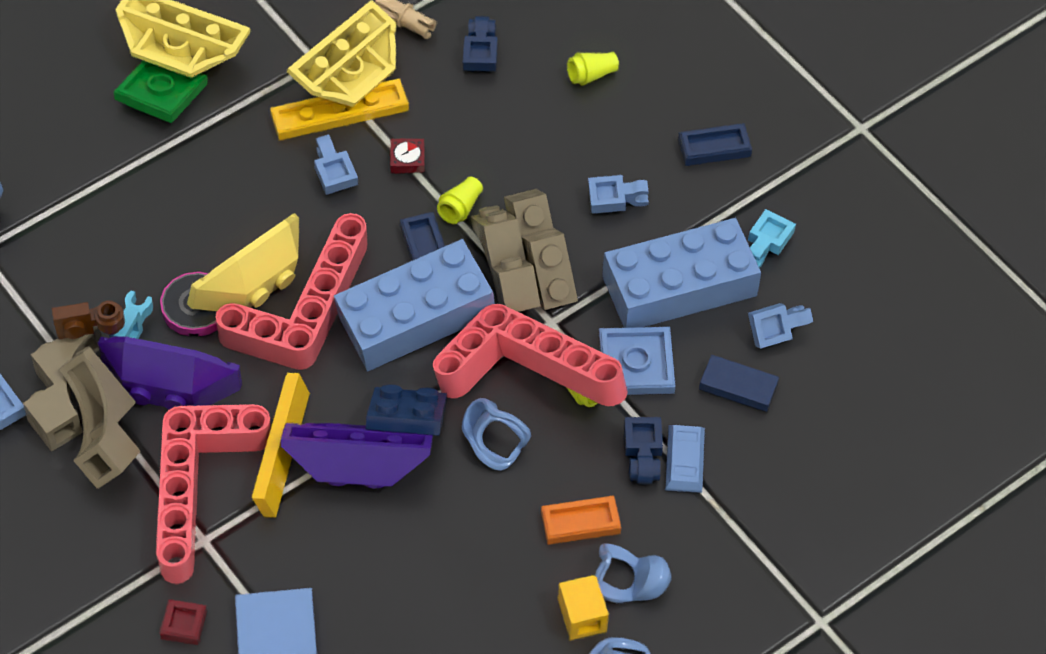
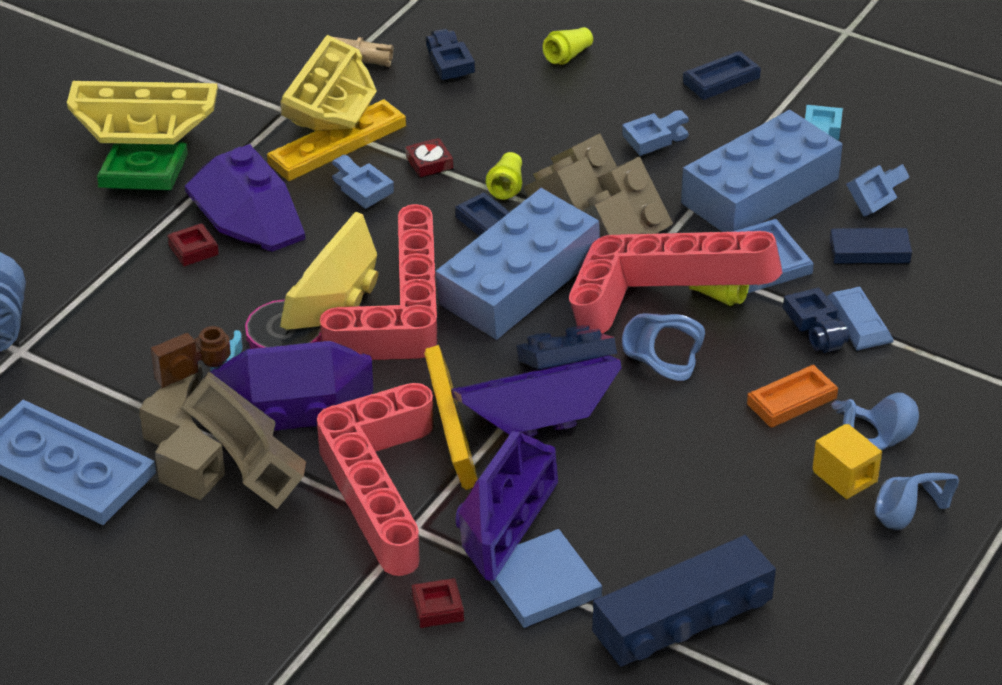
camera: 20 degrees left, 15 degrees down
(165, 186) = (192, 244): none -> dark red tile
(224, 155) = (246, 199): none -> dark purple wedge
(276, 552) = (506, 501): none -> dark purple wedge

